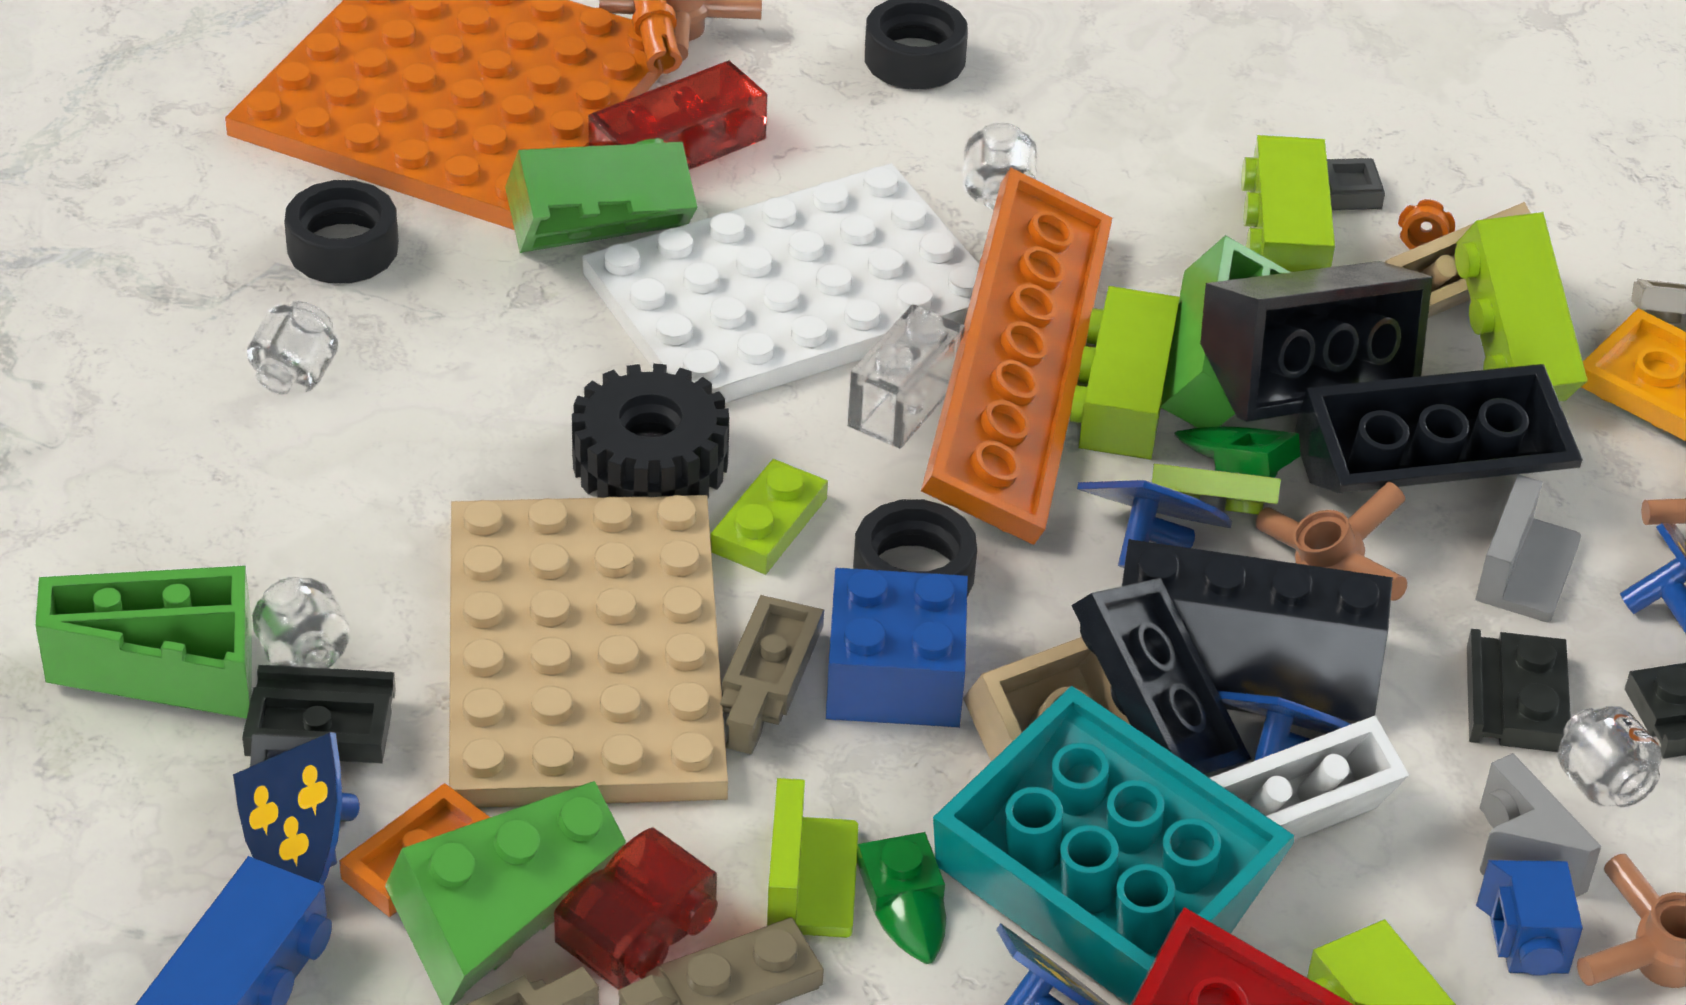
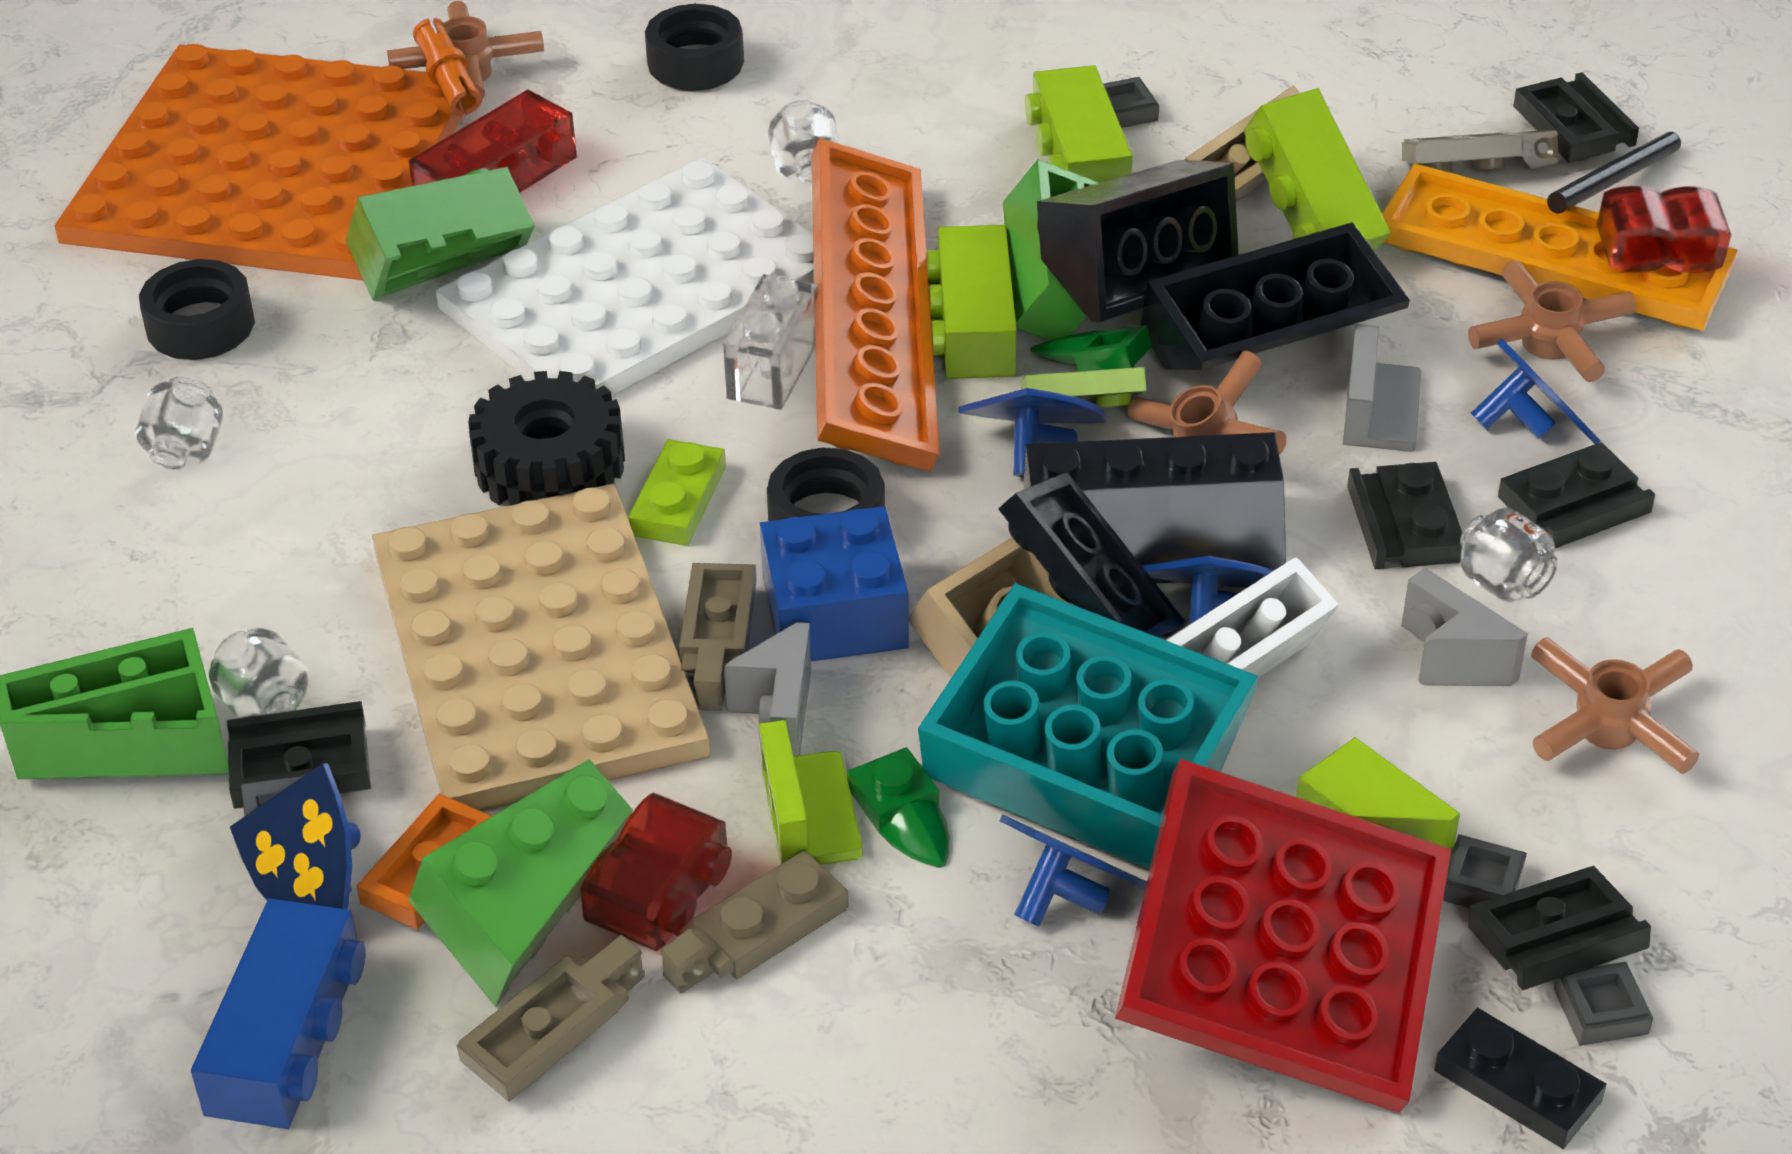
camera: 10 degrees left, 0 degrees up
(810, 738) = (773, 680): none -> light grey slope
(1426, 211) = (1202, 113): orange plate -> none
(1532, 914) = (1481, 707): blue window -> none

